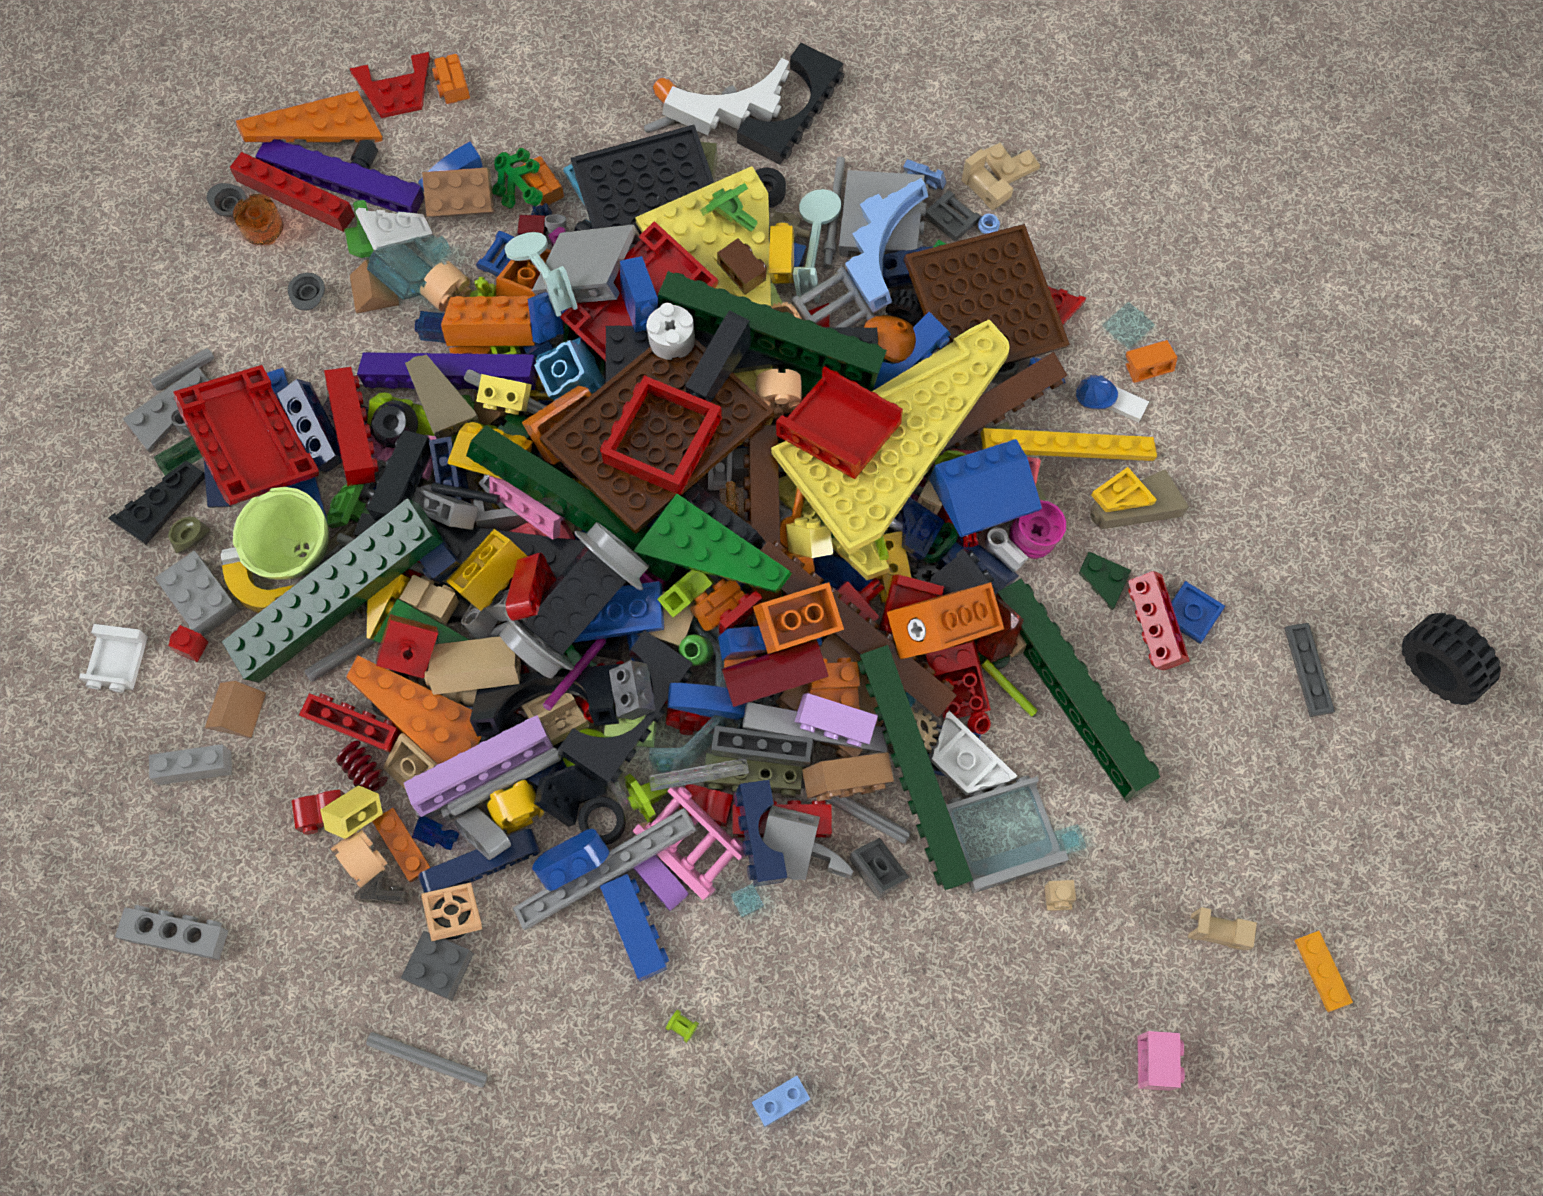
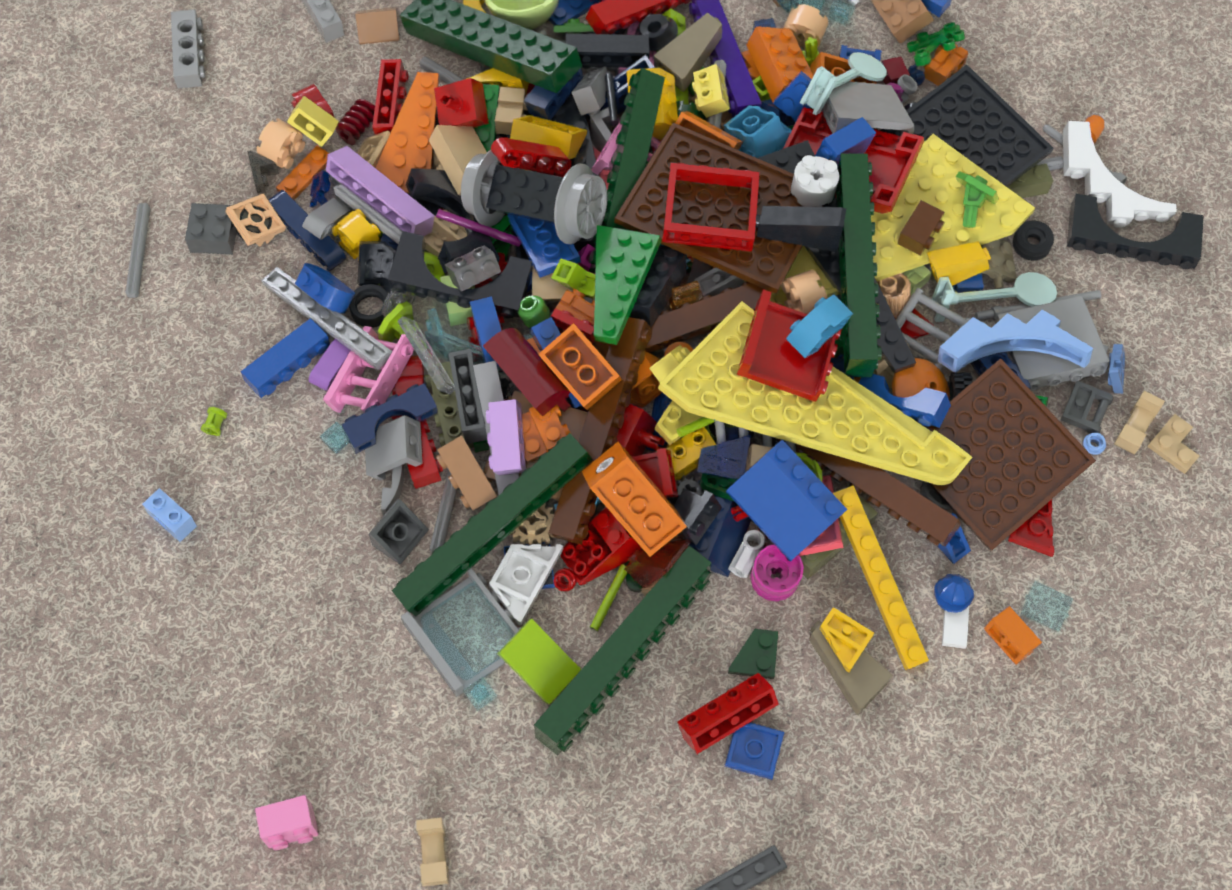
camera: 70 degrees right, 5 degrees down
(837, 397) = (819, 325): none -> dark azure brick
(1059, 772) = (539, 661): none -> lime tile
(1060, 895) = (421, 695): tan brick -> none

